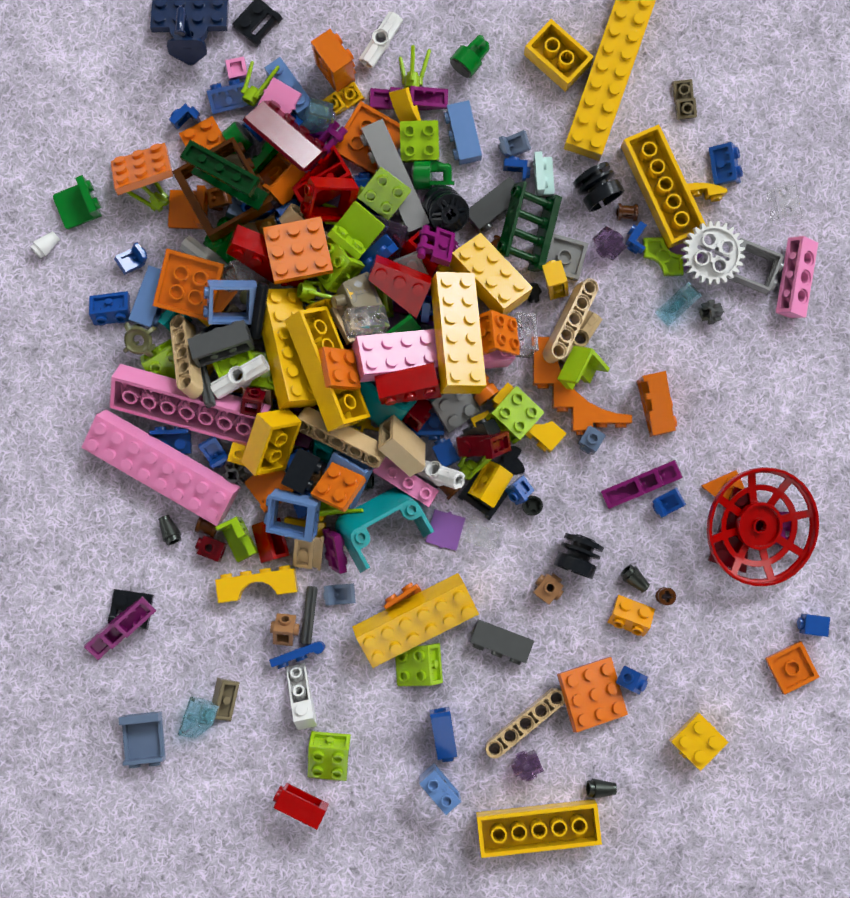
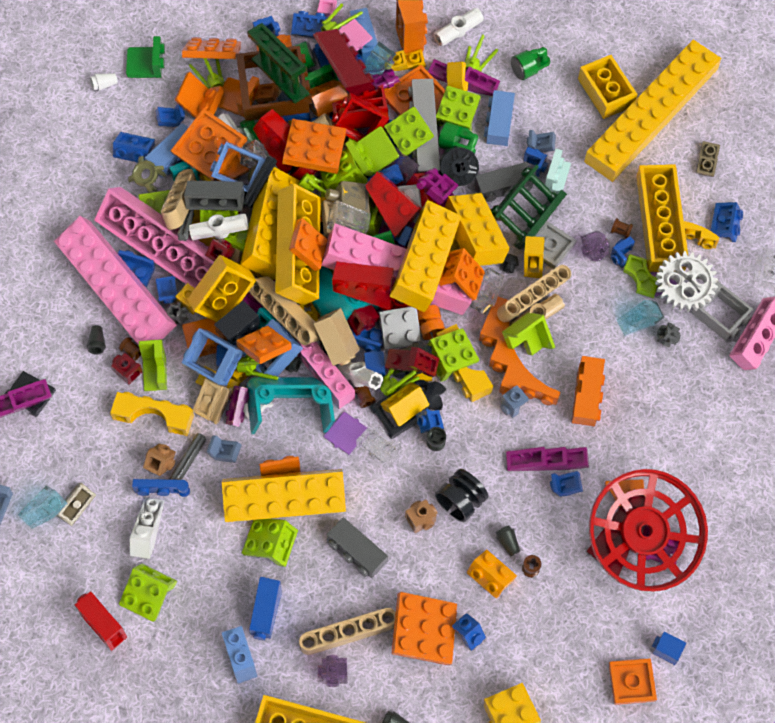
camera: 20 degrees right, 20 degrees down
(152, 229) = (195, 96): none -> orange bracket
(269, 545) = (181, 383): red brick -> none
(597, 185) = (602, 194): black wheel -> none

